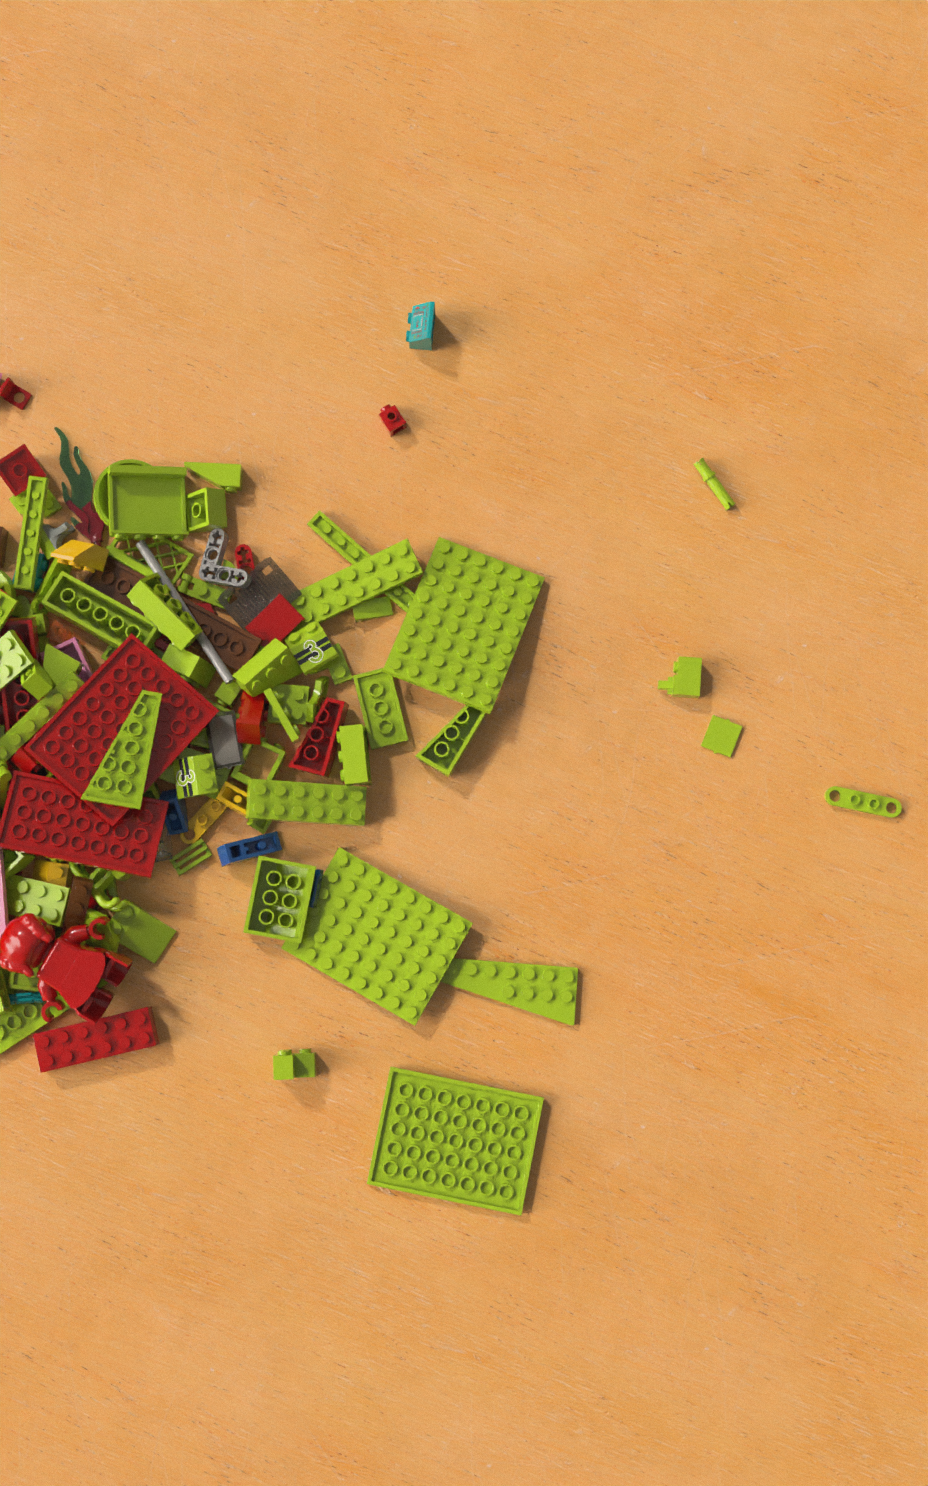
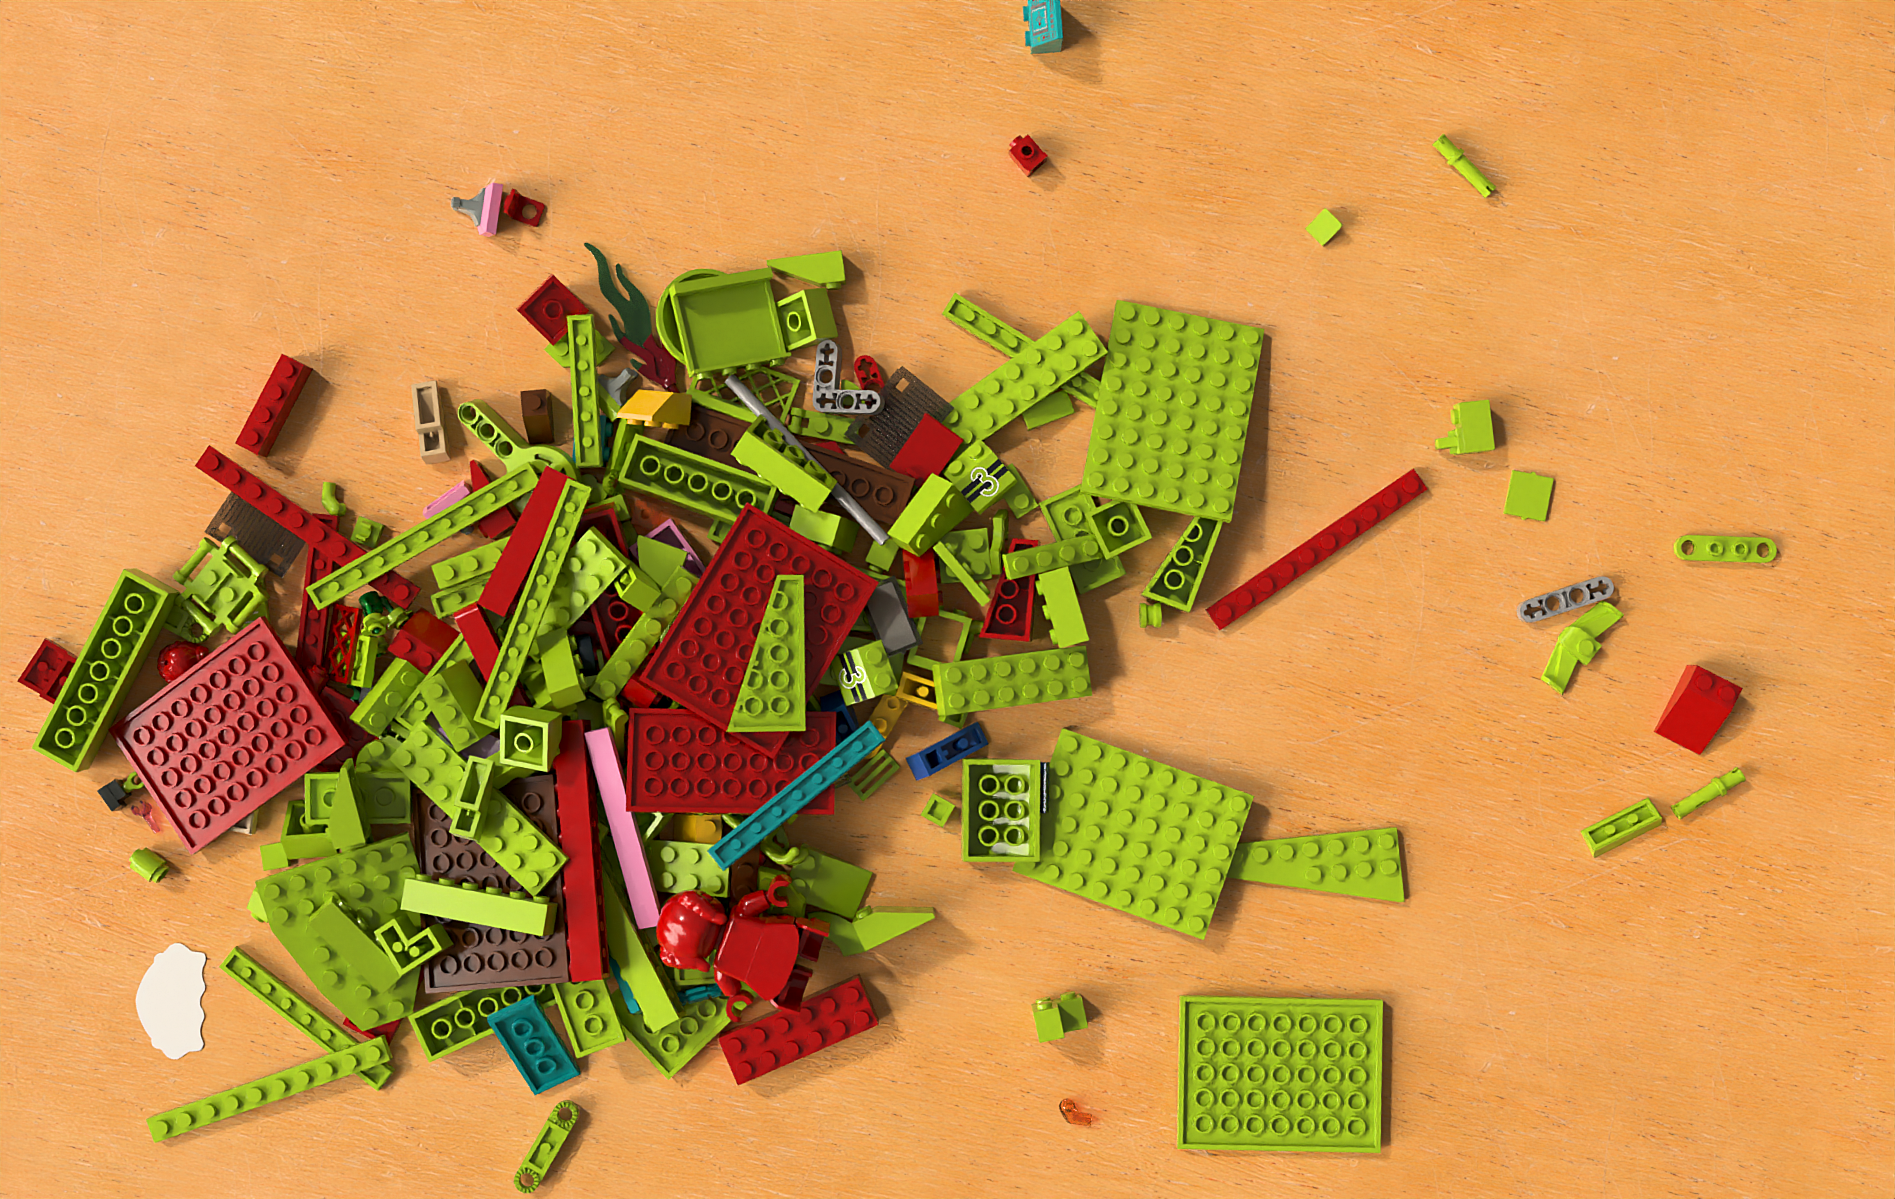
camera: 15 degrees left, 5 degrees up
(124, 857) = (796, 795): none -> teal tile
(144, 973) = (841, 932): none -> lime tile
(173, 969) = (886, 922): none -> lime slope
(233, 892) = (937, 810): none -> lime plate
(285, 762) = (975, 628): none -> lime hand
(291, 1143) = (1072, 1114): none -> clear orange arm
(353, 715) = (1051, 556): none -> lime plate
(407, 703) = (1117, 527): none -> lime slope
(420, 774) = (1150, 615): none -> lime wheel
(554, 747) = (1316, 549): none -> red plate
(602, 510) = (1323, 227): none -> lime slope
(735, 818) = (1564, 597): none -> light grey beam
(740, 853) = (1579, 644): none -> lime plate
(749, 999) = (1621, 827): none -> lime slope
(819, 984) = (1716, 788): none -> lime pin
(821, 918) = (1697, 708): none -> red slope

